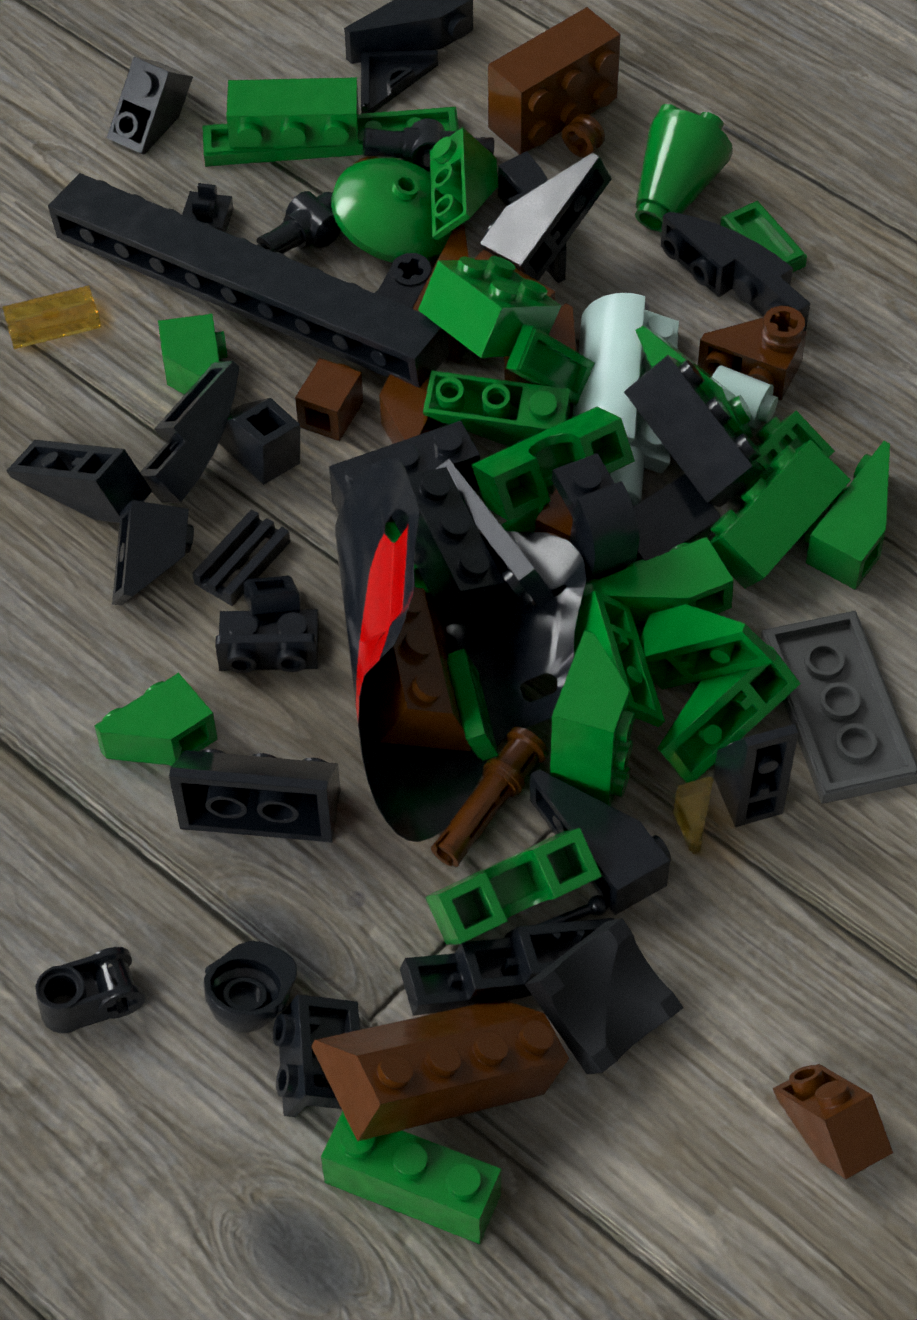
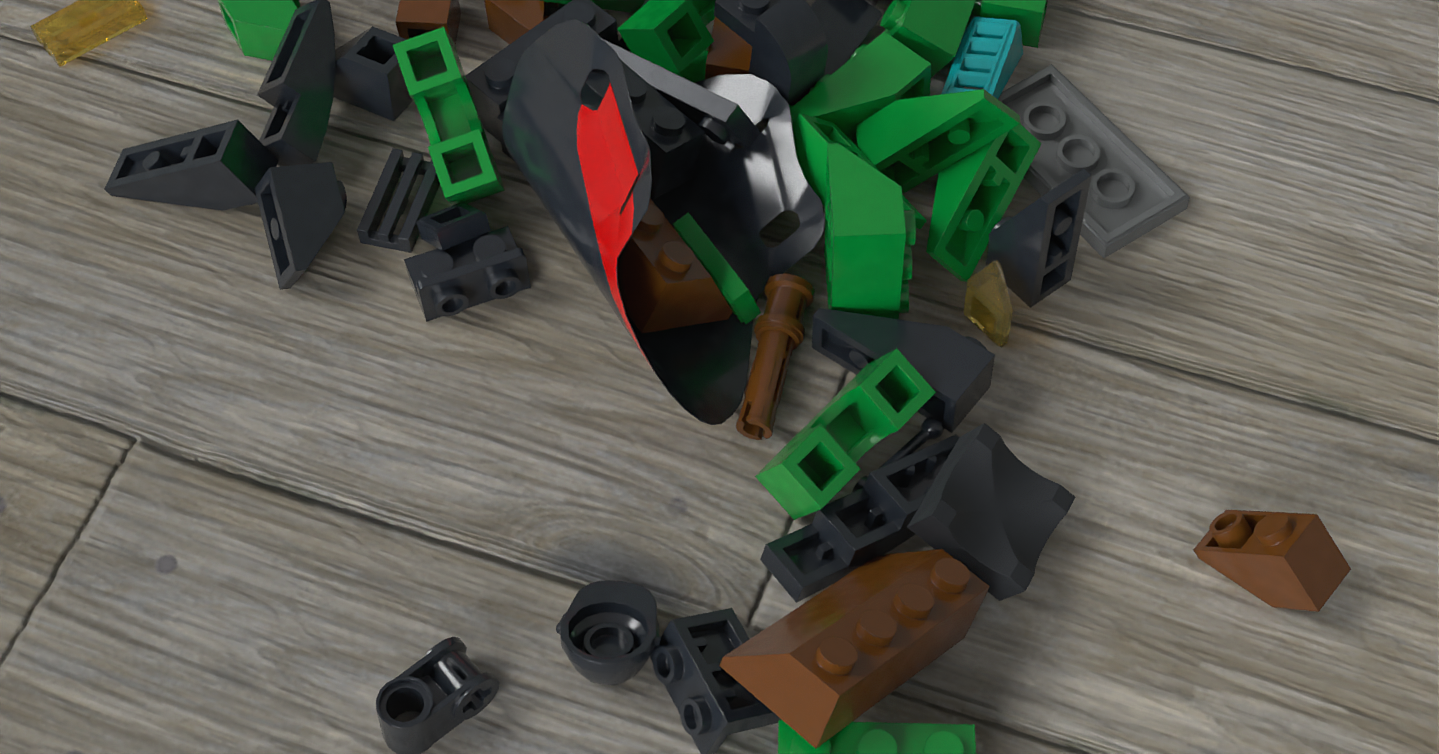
camera: 20 degrees left, 0 degrees up
(158, 725) = (391, 394): green slope -> none
(256, 795) = (531, 431): black slope -> none
(302, 474) = (449, 116): none -> green arch
(802, 569) = (986, 56): none -> teal slope

